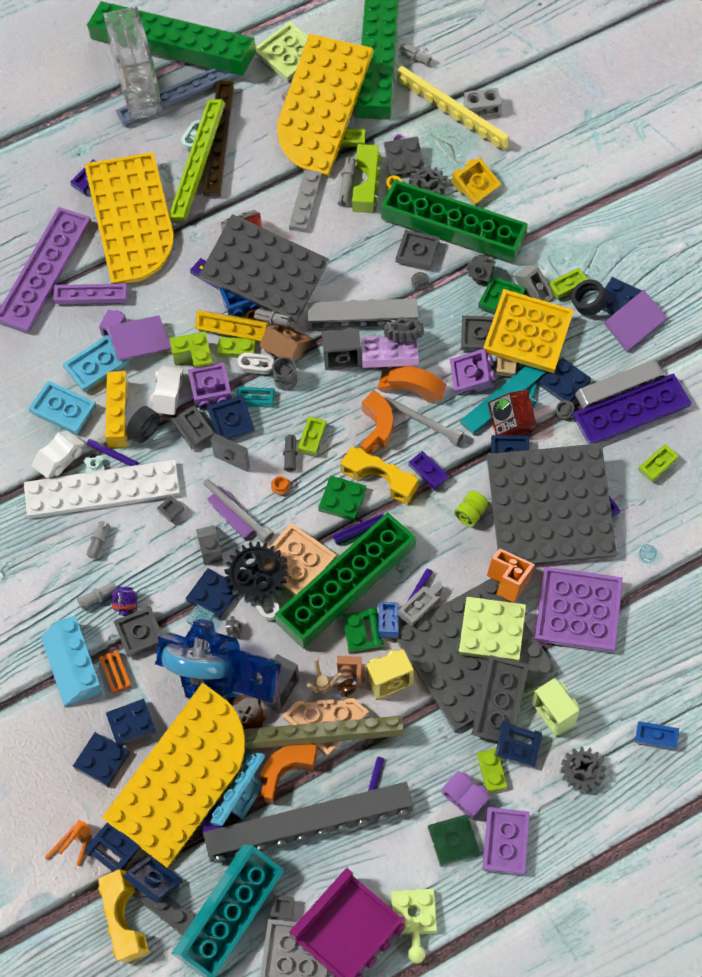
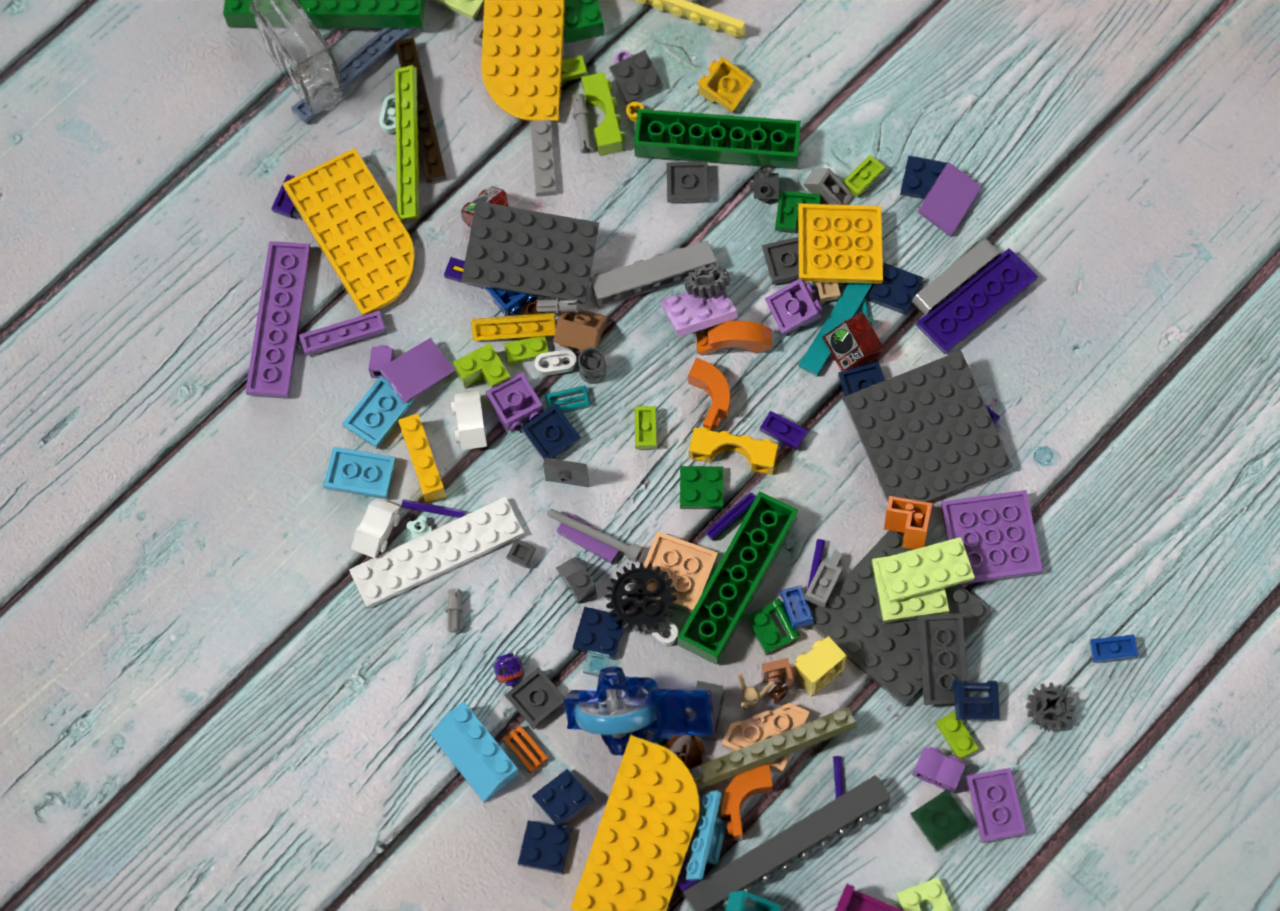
camera: 15 degrees left, 5 degrees up
(97, 595) = (476, 671): light grey pin -> none
(143, 424) = (458, 467): black tyre -> none
(193, 427) = (512, 454): dark grey plate -> none
(233, 627) = (635, 663): dark grey plate -> none
(280, 485) = (629, 492): orange plate -> none
(290, 453) = (628, 453): dark grey axle -> none
(341, 349) = (645, 320): dark grey brick -> none
(420, 281) = (701, 217): clear smoke tile -> none
(429, 179) = (673, 97): dark grey gear -> none
(454, 436) = (798, 384): light grey piece -> none
(471, 508) = (844, 460): lime wheel -> none
(509, 618) = (925, 569): none -> yellowish green plate
(556, 706) = (1003, 650): yellowish green brick -> none
(564, 409) = (906, 321): dark grey plate -> none
(585, 287) = (882, 177): black tyre -> none
(658, 463) = (1023, 352): lime plate -> none

